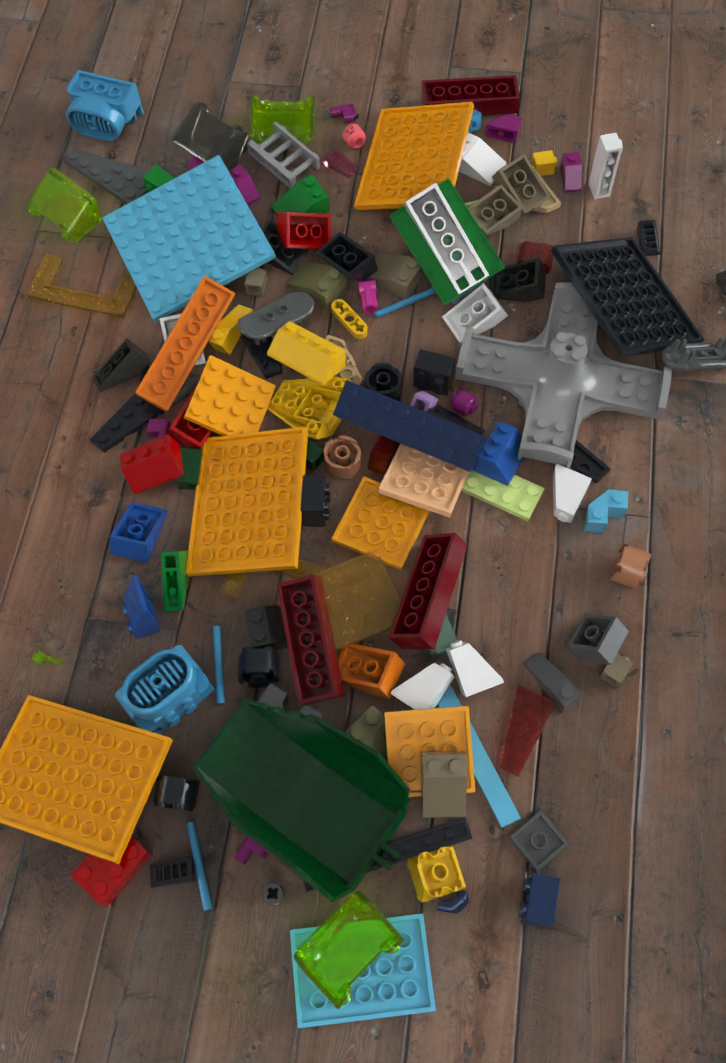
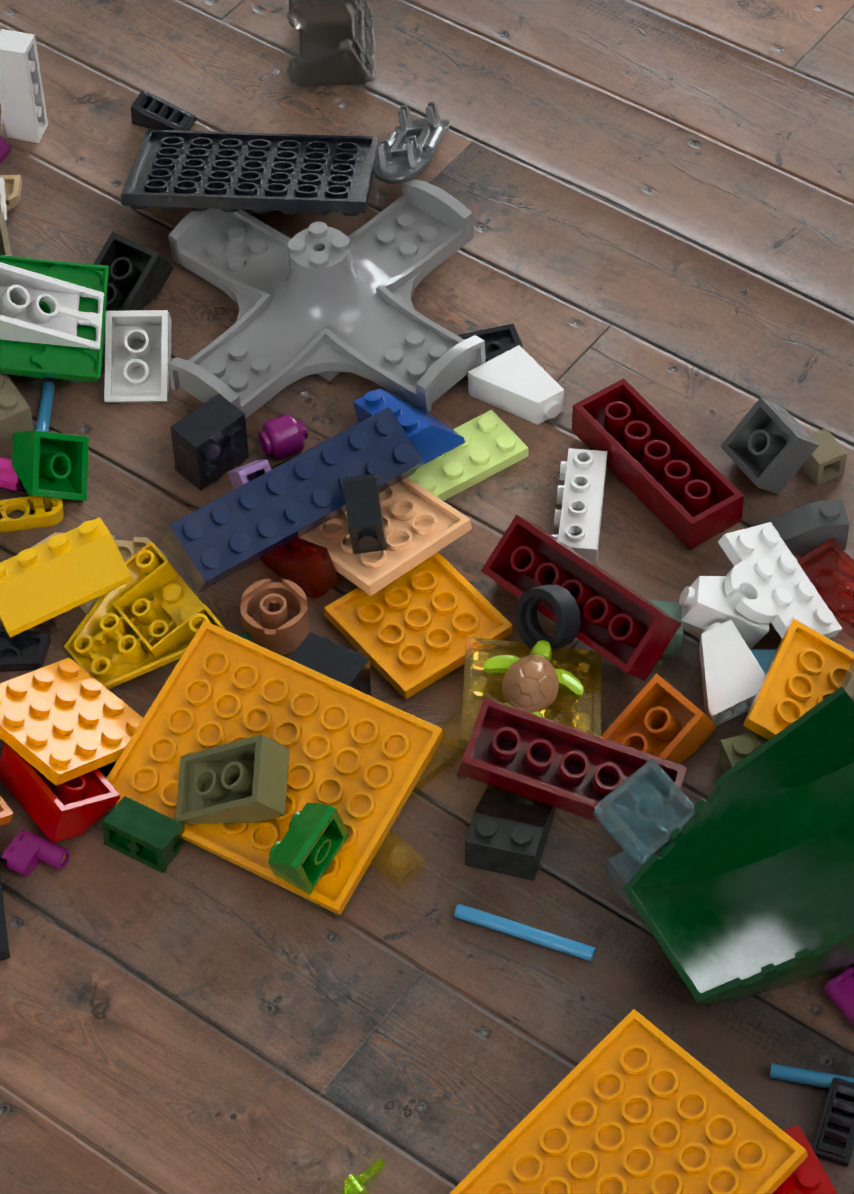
camera: 65 degrees left, 15 degrees down
(137, 532) = (213, 952): blue slope -> none
(139, 609) = (370, 981): blue slope -> none
(152, 464) = (105, 873): red slope -> none
(163, 690) = (537, 1001): dark azure brick -> none
(174, 579) = (337, 929): green slope -> none
(176, 791) = (724, 1047): black brick -> none
(201, 541) = (308, 846): none -> green slope
(223, 491) = (233, 783): none -> olive slope
(258, 667) = (570, 865): black brick -> none
(291, 688) = (644, 812): none -> clear light blue brick
(356, 594) = (532, 681): none -> medium nougat animal
(378, 315) = (51, 464): none -> green slope
(384, 380) = (171, 502): black brick -> none
(401, 581) = (566, 611): none -> black tyre
(416, 463) = (364, 514): none -> black slope
(497, 686) = (773, 582): none -> white plate
(501, 563) = (581, 501): none -> white brick
(535, 250) = (82, 243): clear red slope -> none
(552, 586) = (658, 463): none -> dark red brick
(610, 504) = (572, 356): medium azure brick -> none
(629, 566) = (679, 368): nougat brick -> none

